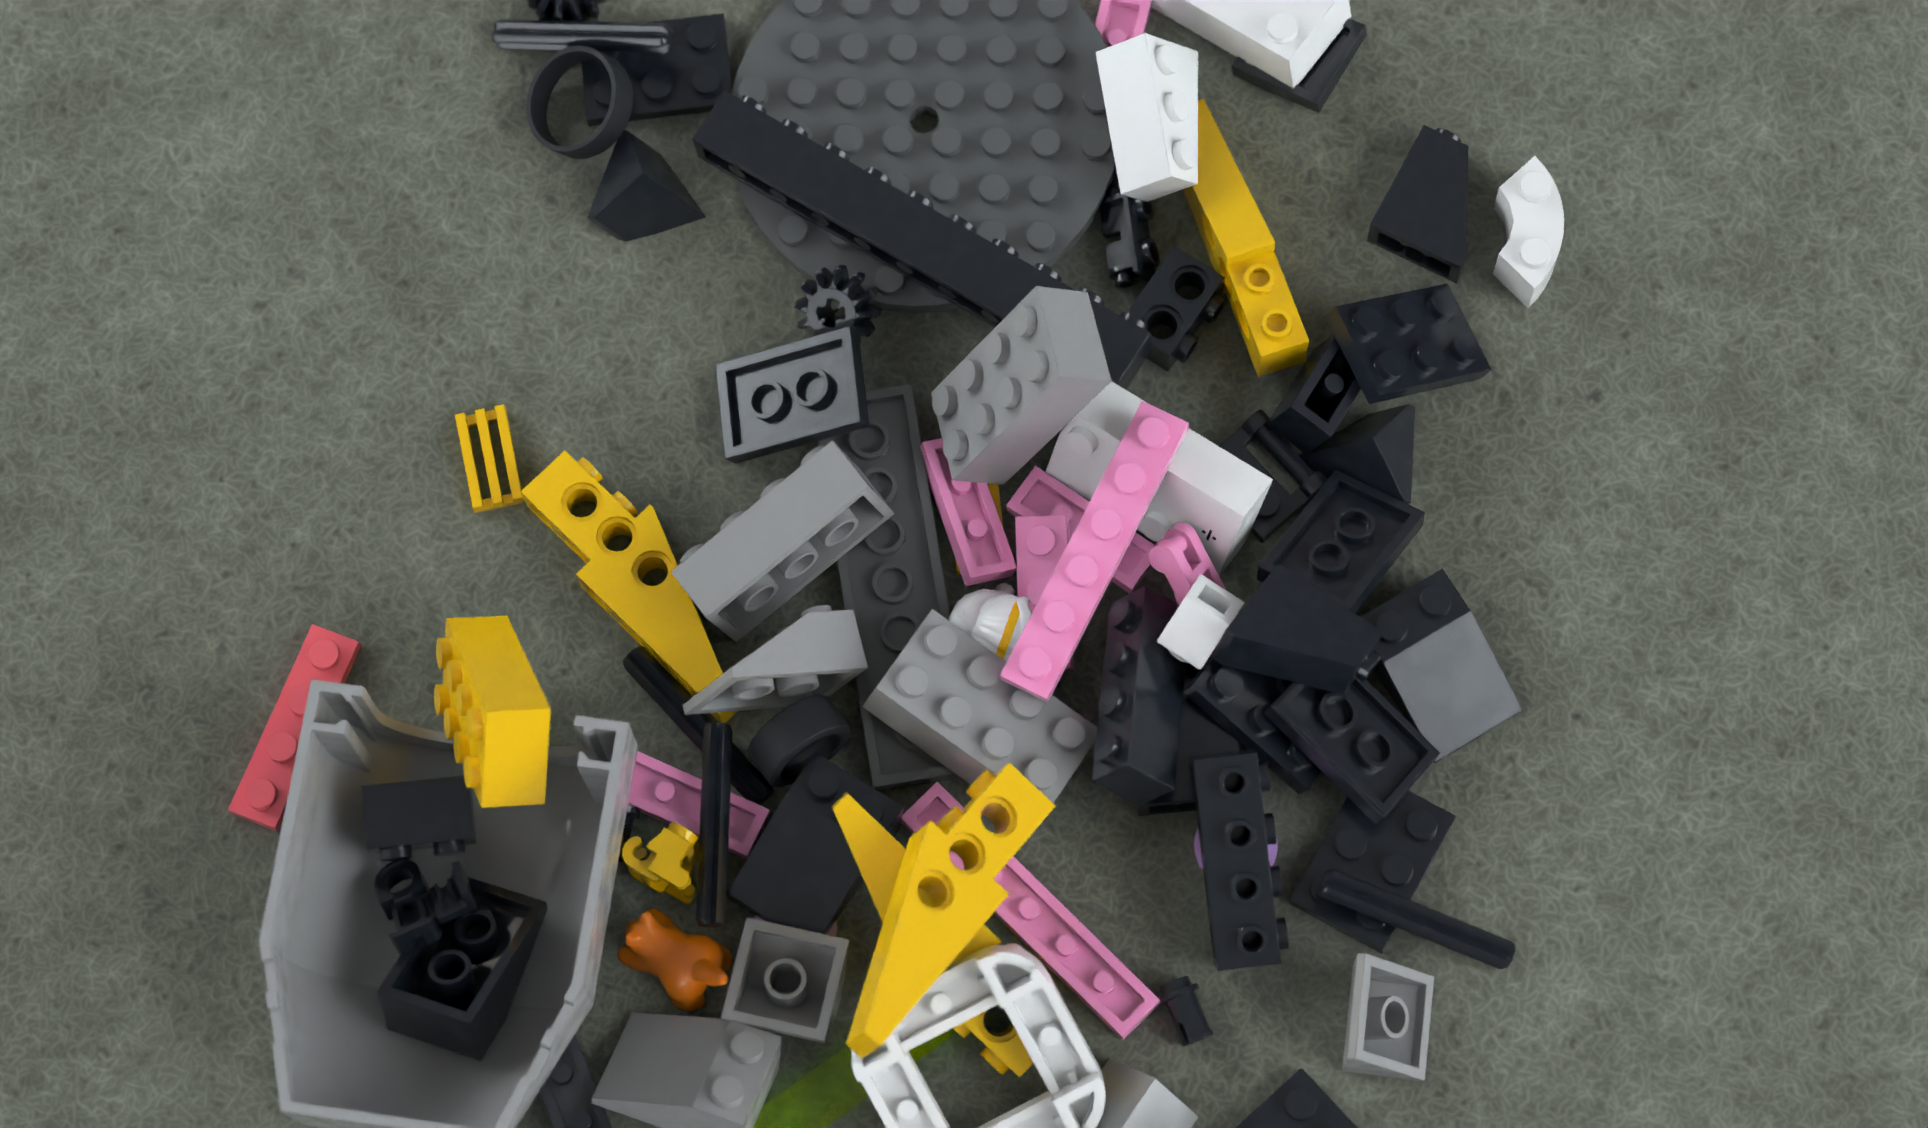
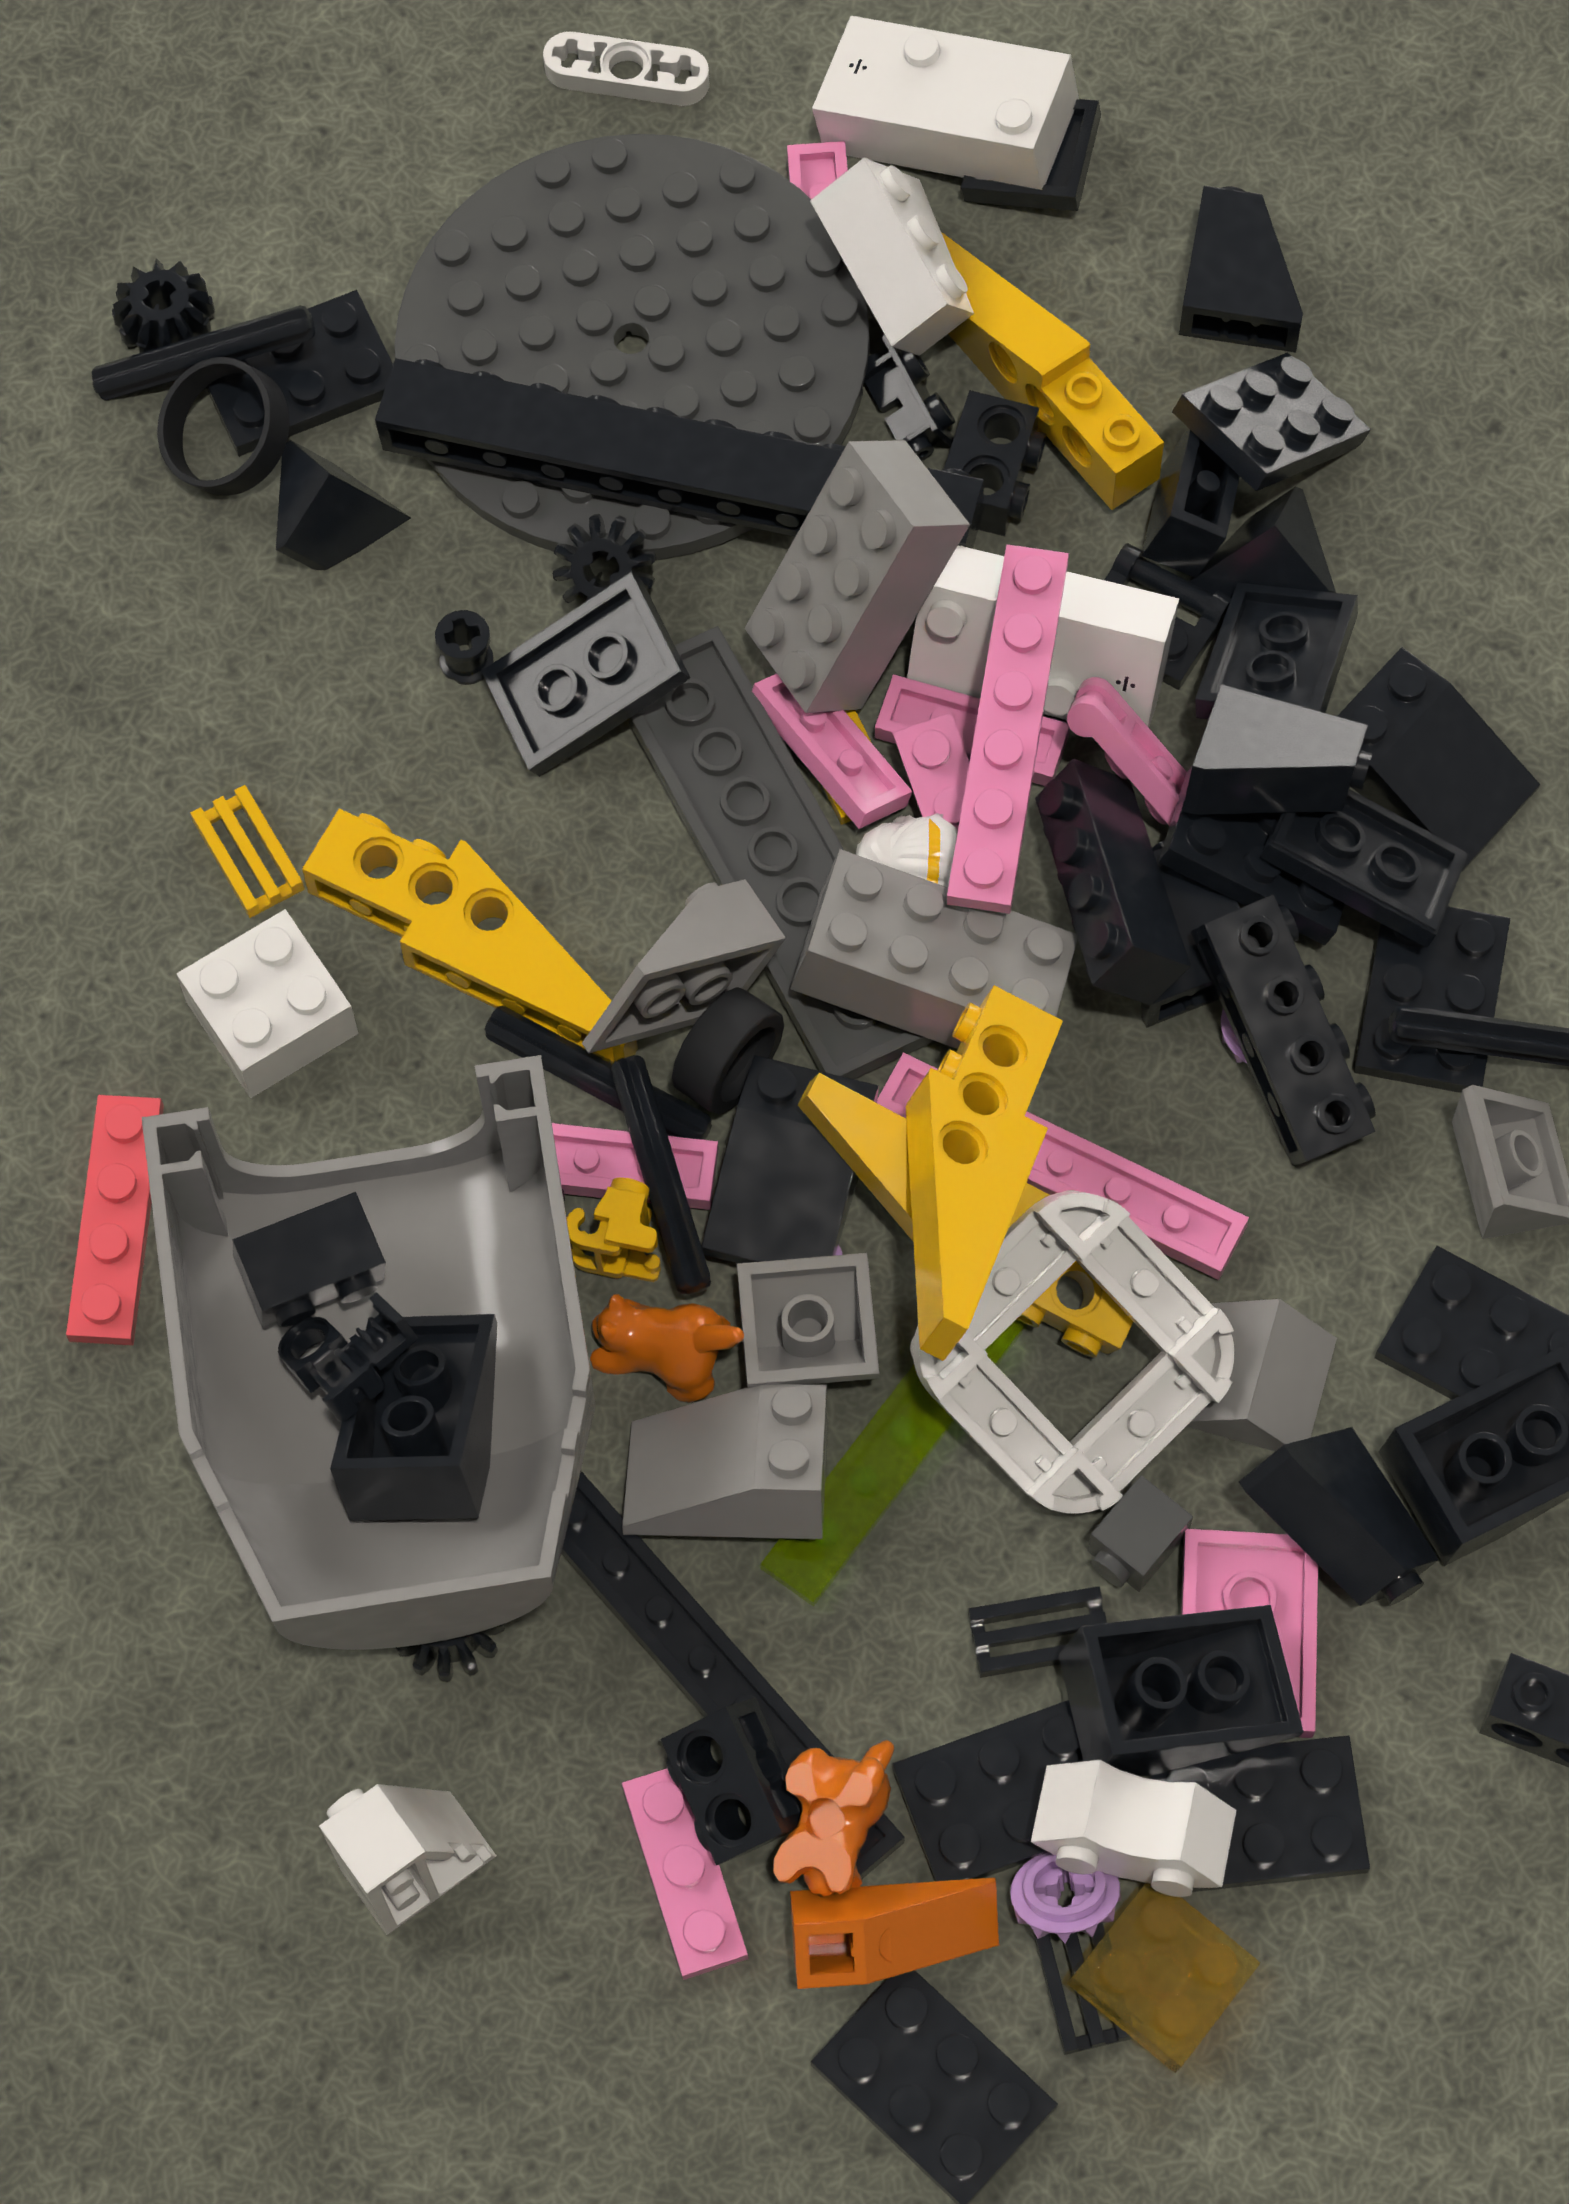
camera: 20 degrees left, 5 degrees down
(458, 579) = (267, 1003): none -> white brick
(493, 711) = (364, 1107): yellow brick -> none
(695, 336) = (461, 629): none -> black bush
(782, 541) = (634, 829): light grey brick -> none
(1185, 1010) = (1281, 1222): black pin -> none
(1200, 622) = (1153, 777): white brick -> none
(1533, 228) = (1364, 265): white brick -> none

